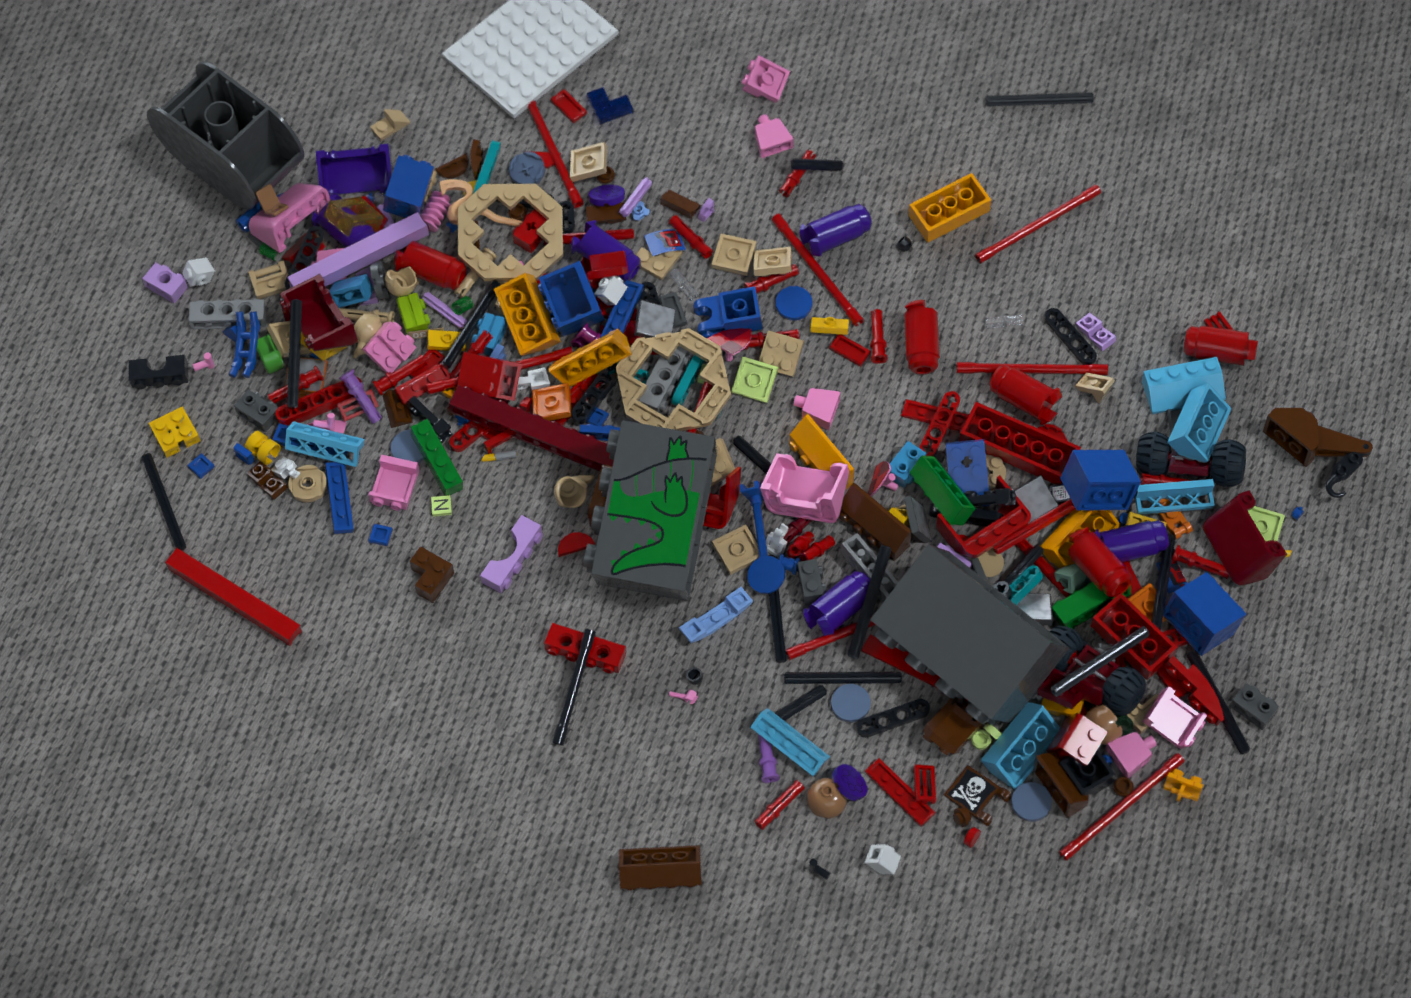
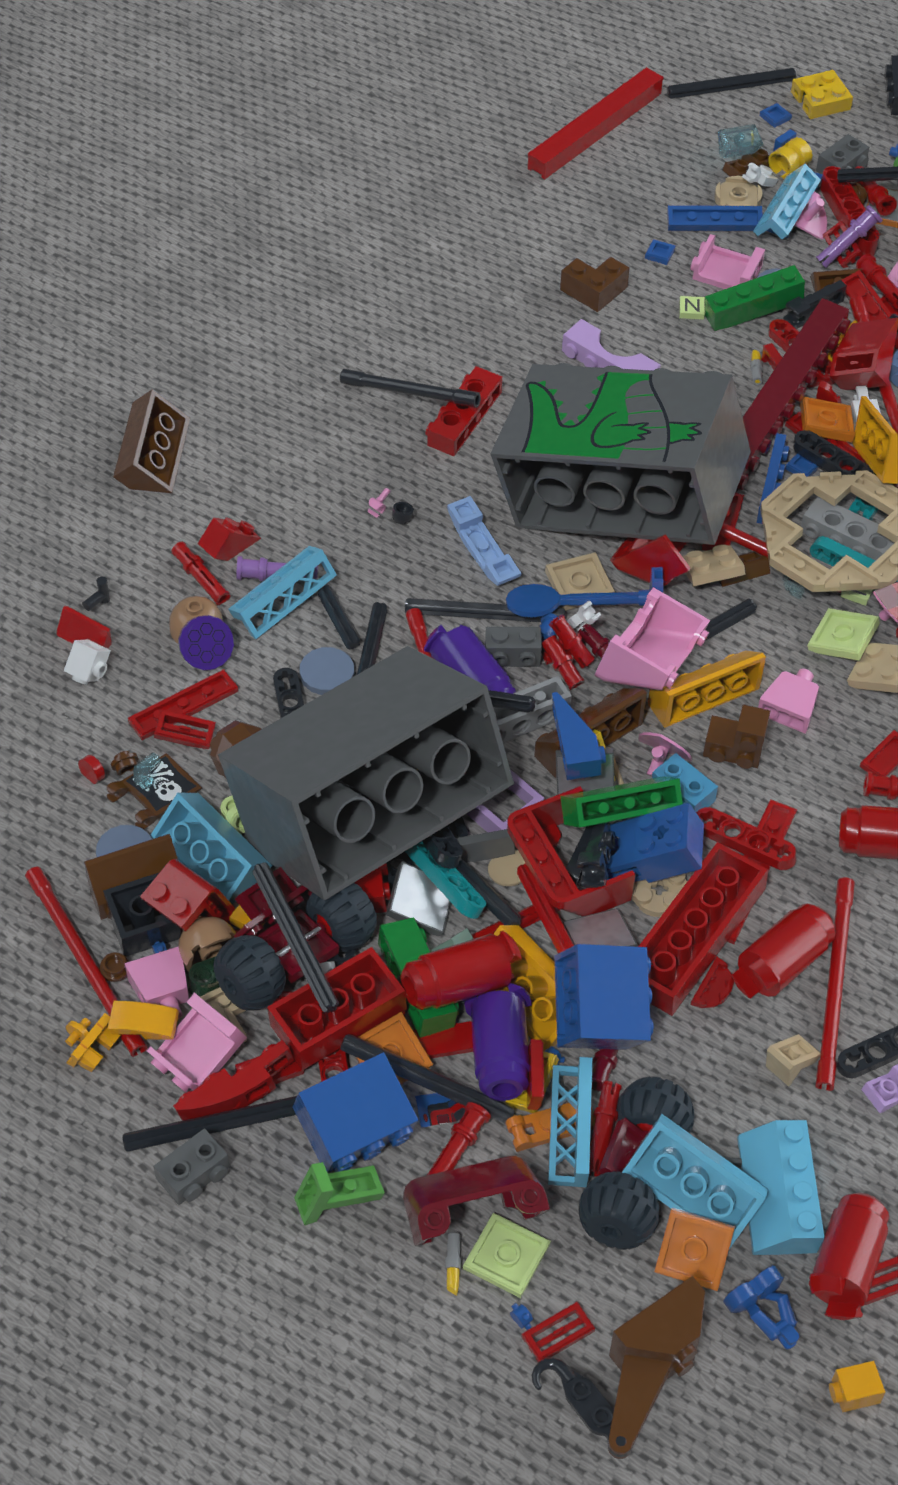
camera: 95 degrees right, 10 degrees down
(253, 484) = (739, 141): none -> clear light blue slope
(745, 790) = (227, 538): none -> red slope
(852, 872) = (77, 626): none -> red slope
(863, 430) = (739, 740): none -> reddish brown brick
(916, 513) = (577, 742): none -> blue slope
(969, 801) = (143, 770): none -> clear light blue arm
(1162, 515) = (535, 1089): none -> red tile
(1166, 752) = (147, 1019): none -> light orange slope
(1236, 424) = (694, 1248): none -> orange tile
(1254, 398) = (764, 1287): none -> blue piece
(1255, 624) = (334, 1190): none -> bright green bracket
(1287, 490) = (535, 1347): none -> red tile
(1294, 339) = (857, 1386): none -> light orange brick

